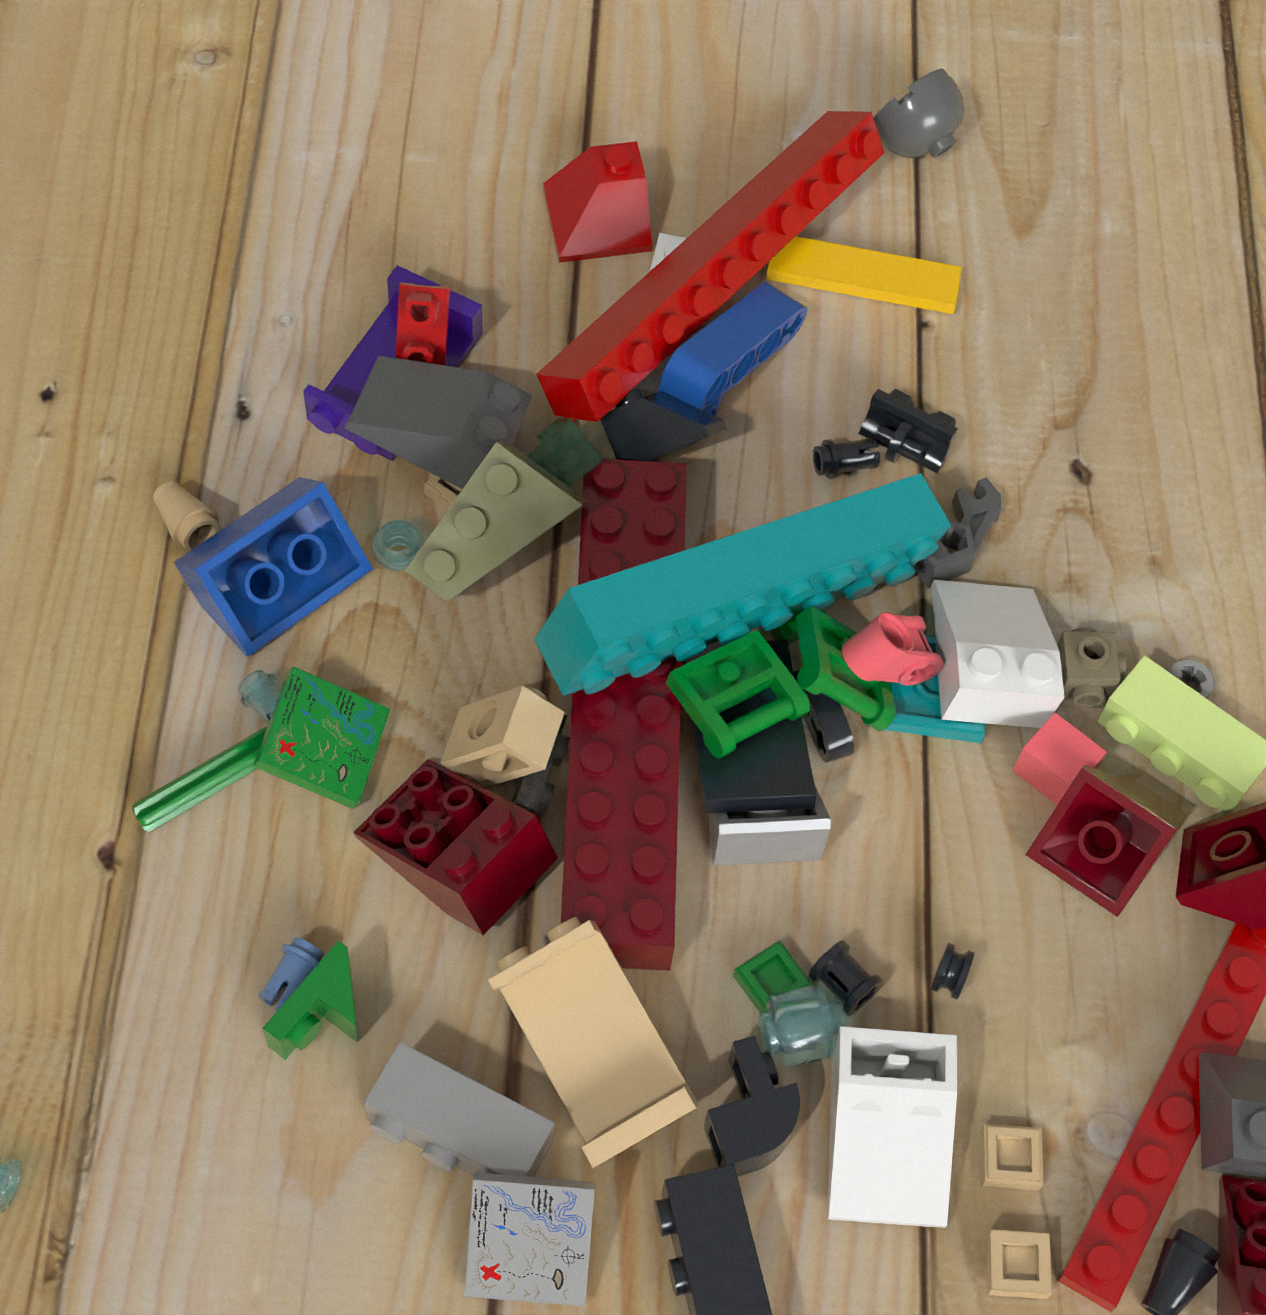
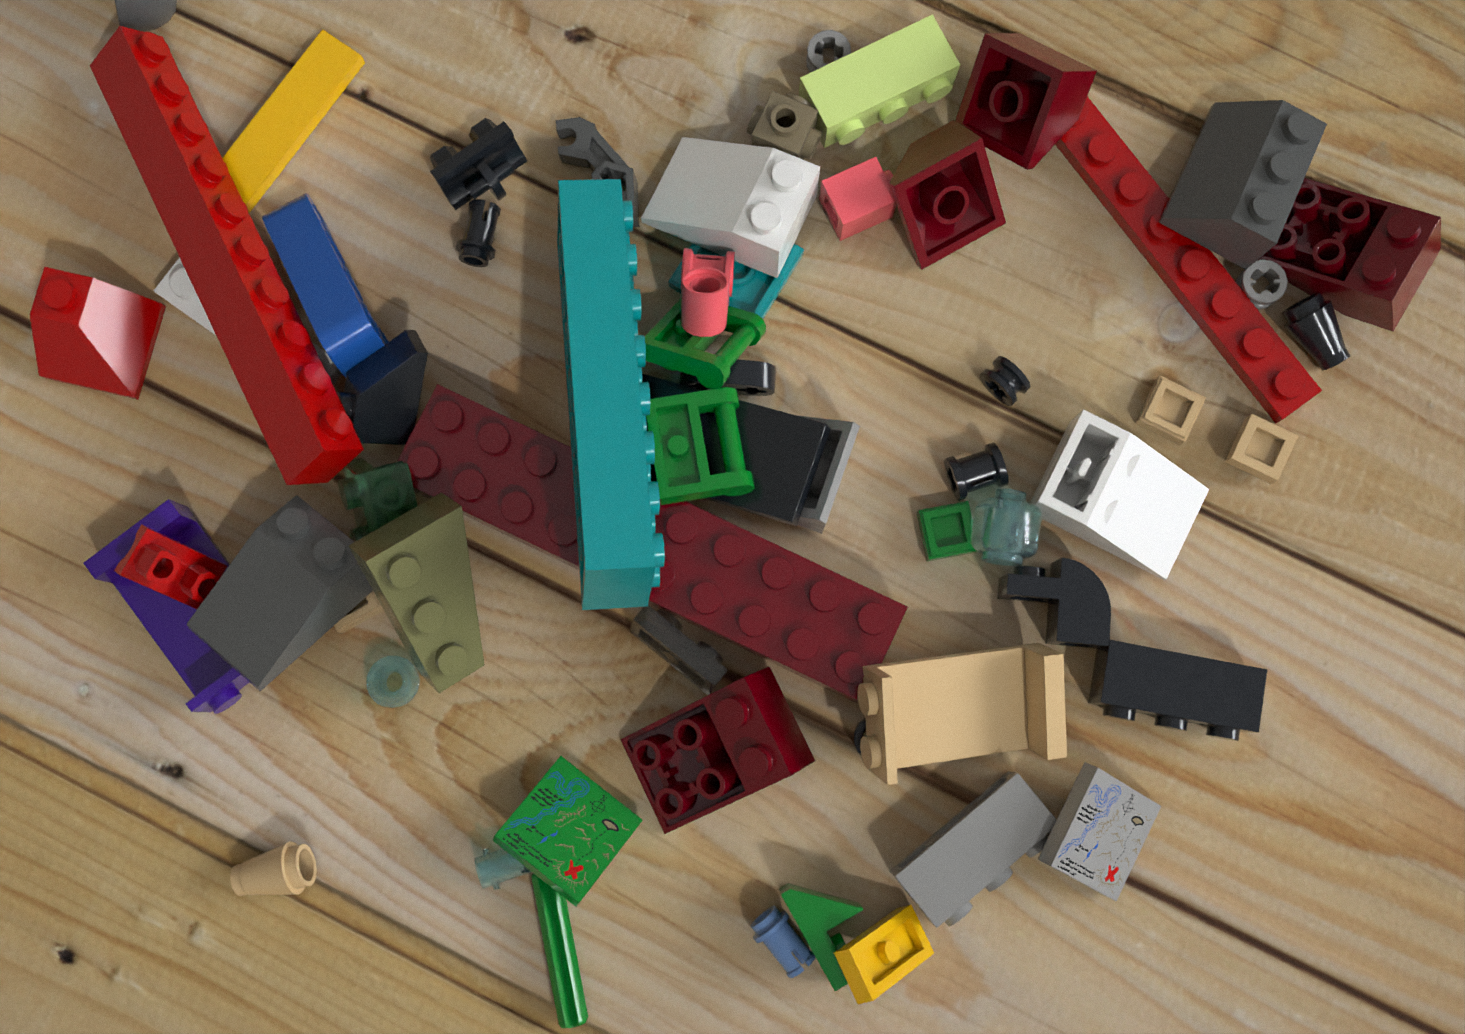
camera: 60 degrees left, 20 degrees up
(274, 564) = (364, 807): blue slope -> none
(318, 1065) = (884, 954): none -> yellow plate
(503, 737) = (645, 669): tan brick -> none
(1212, 1193) = (1275, 276): none -> light grey bush

